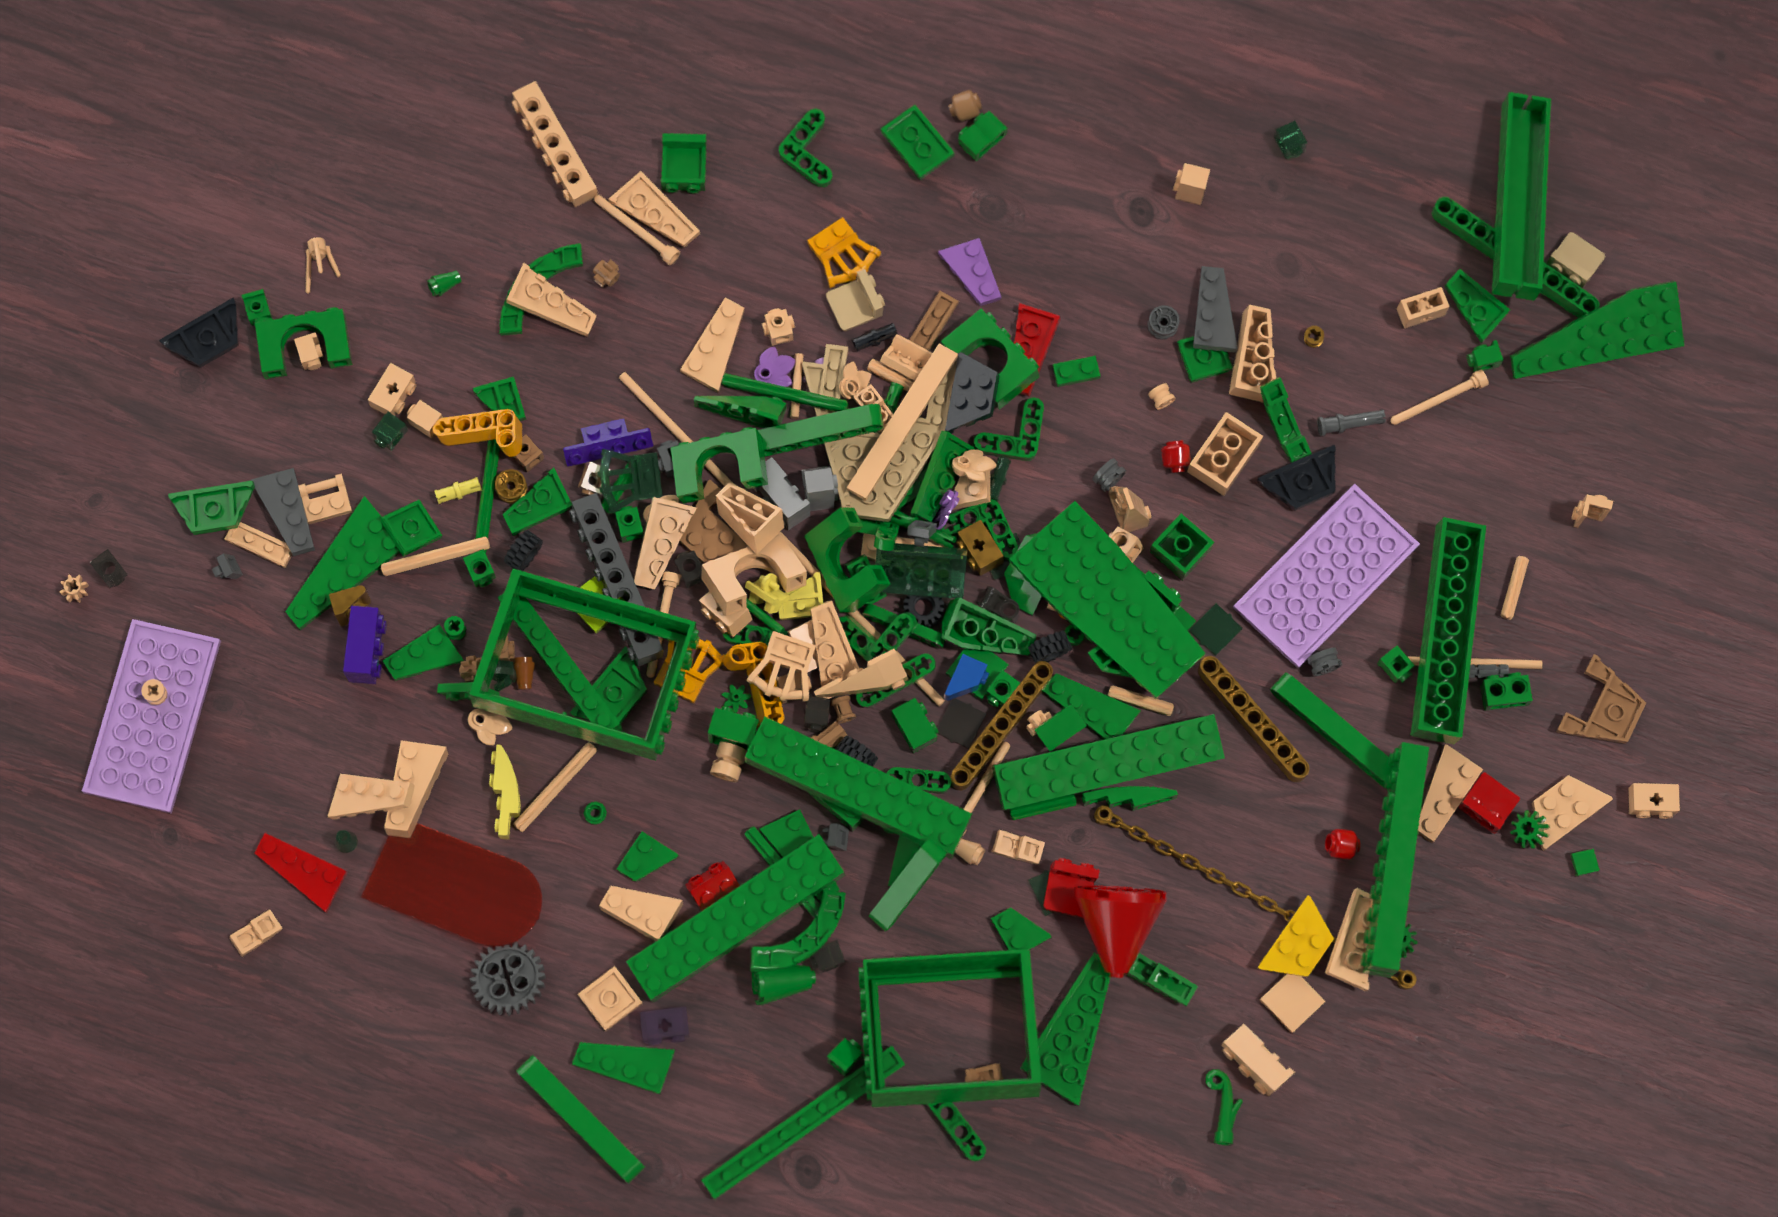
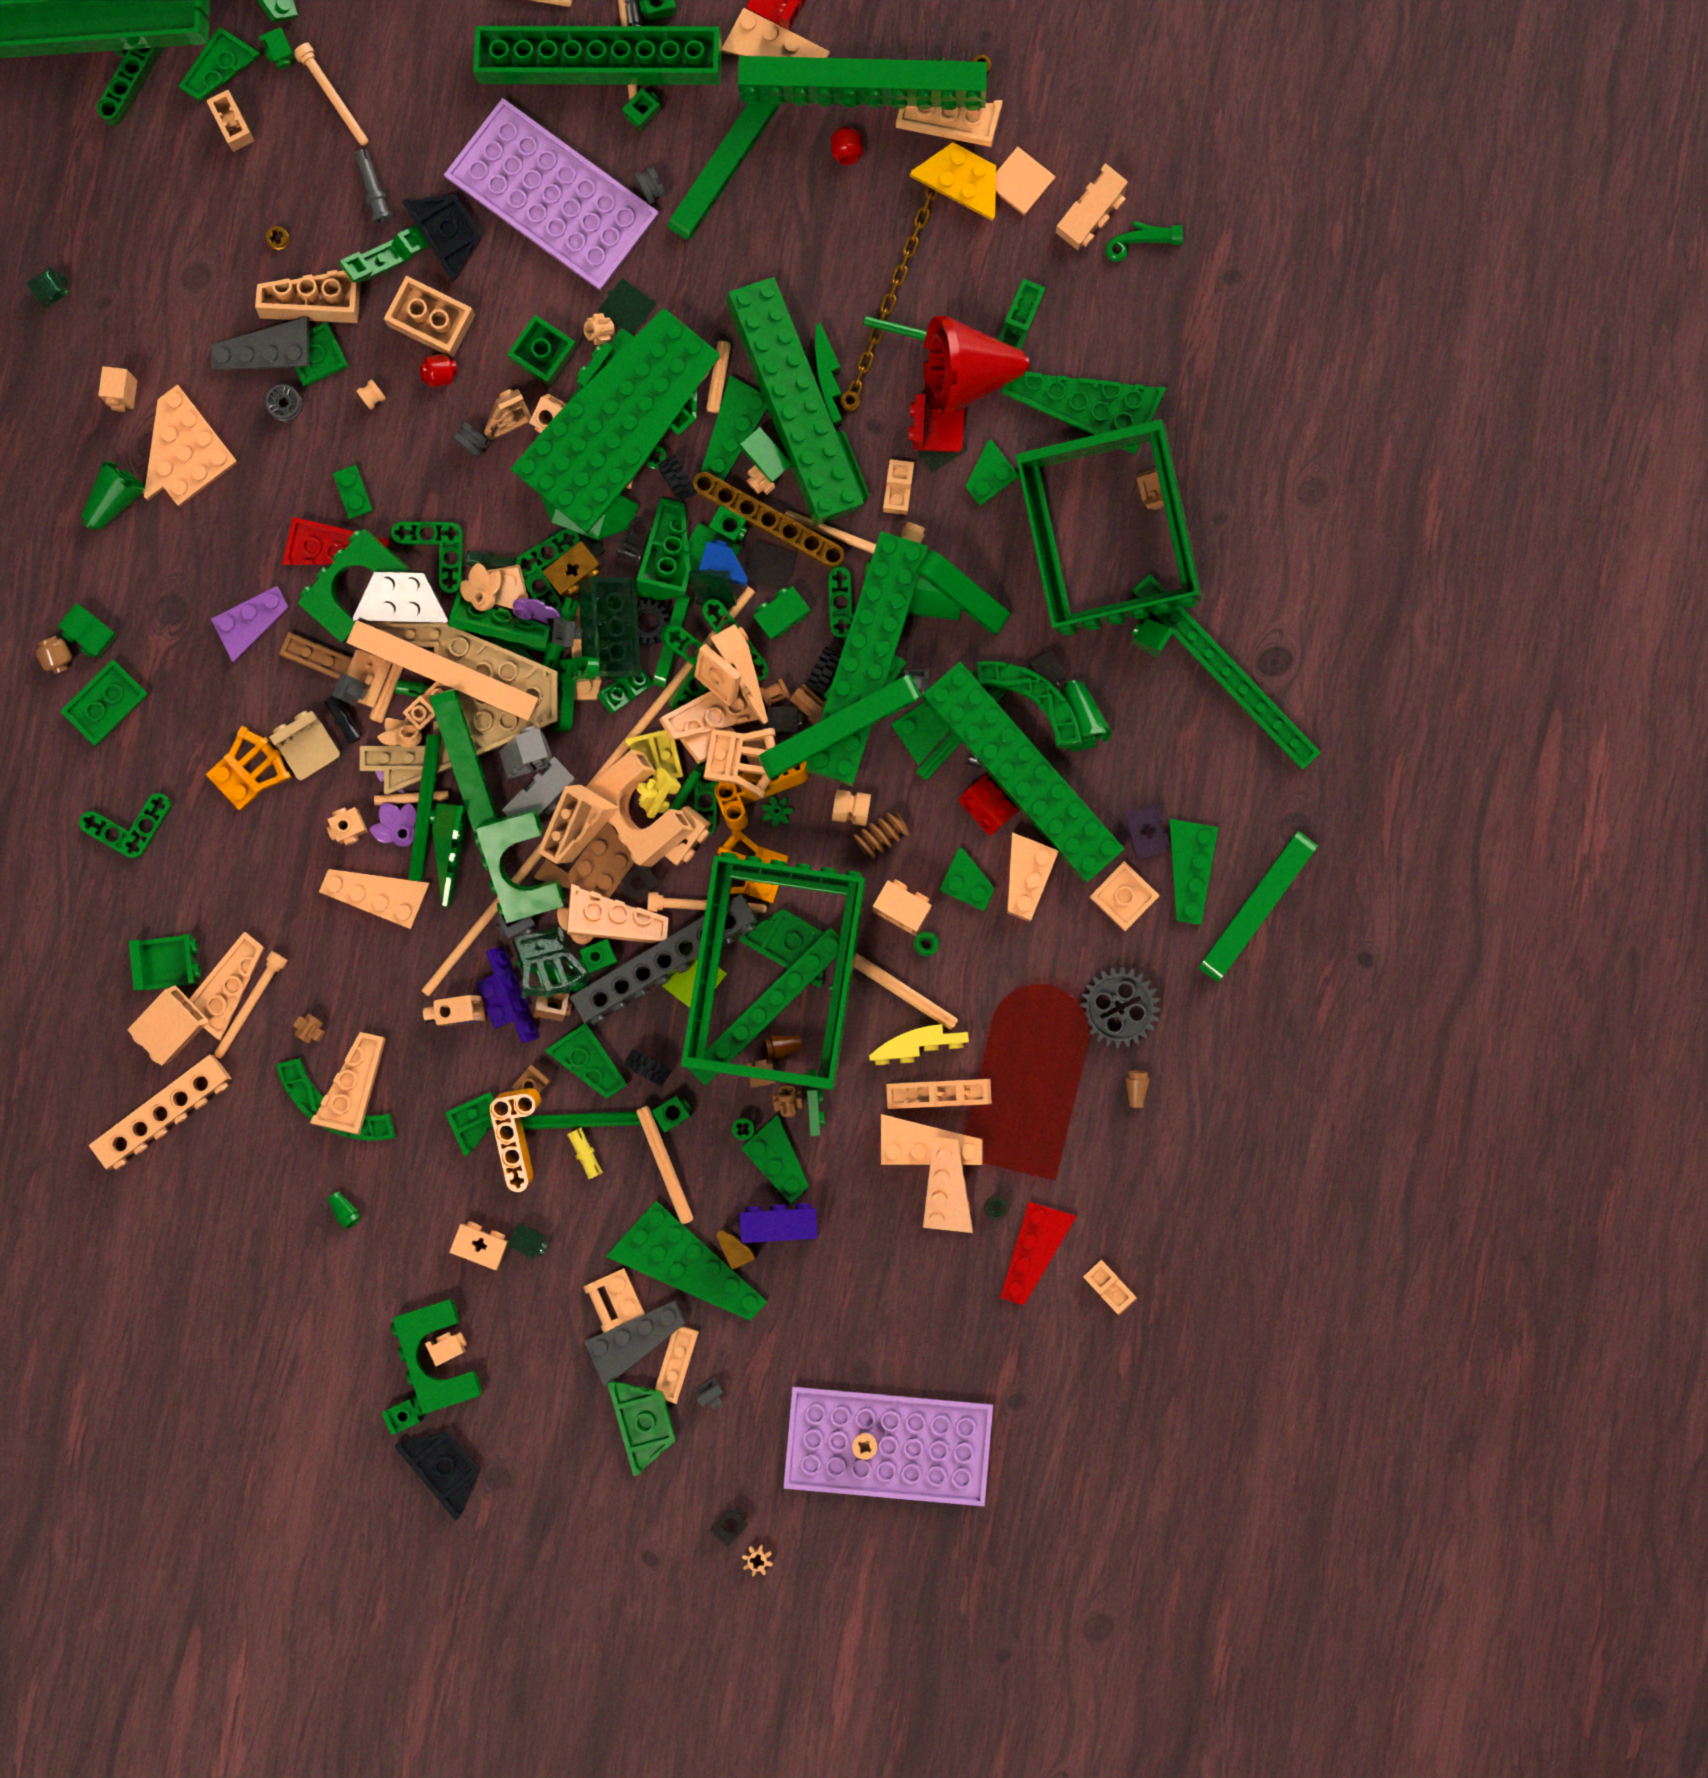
camera: 90 degrees left, 10 degrees up
(317, 251) = (323, 1361): light nougat plant -> none
(411, 528) = (635, 1197): green tile -> none
(423, 417) = (506, 1205): light nougat brick -> none
(432, 983) = (1137, 1086): none -> medium nougat cone
(457, 804) = (939, 1094): none -> light nougat slope
(492, 725) = (849, 1074): light nougat plate -> none
(504, 675) = (789, 1064): clear green piece -> none
(514, 478) = (561, 1095): pearl gold wheel -> none
(600, 397) = (456, 1011): none -> light nougat torso
(627, 157) = (167, 1025): none -> light nougat brick
(628, 790) = (902, 907): none -> light nougat brick
(699, 787) = (882, 834): none -> medium nougat piece
(732, 727) = (817, 805): green brick -> none
(796, 749) = (839, 726): none -> green beam
(826, 543) = (594, 736): green arch -> none
(862, 654) = (717, 675): none -> light nougat tile
(898, 342) = (349, 689): none -> dark grey tile
(946, 666) = (713, 585): none -> clear green piece
(952, 1124) = (1205, 518): green beam -> none
(1099, 168) = (110, 495): none -> green cone
(1132, 235) = (183, 450): none -> light nougat wing
(1166, 860) = (894, 327): none -> green bar
(1197, 599) = (598, 329): none -> light nougat gear
(1251, 708) = (727, 243): pearl gold beam -> none

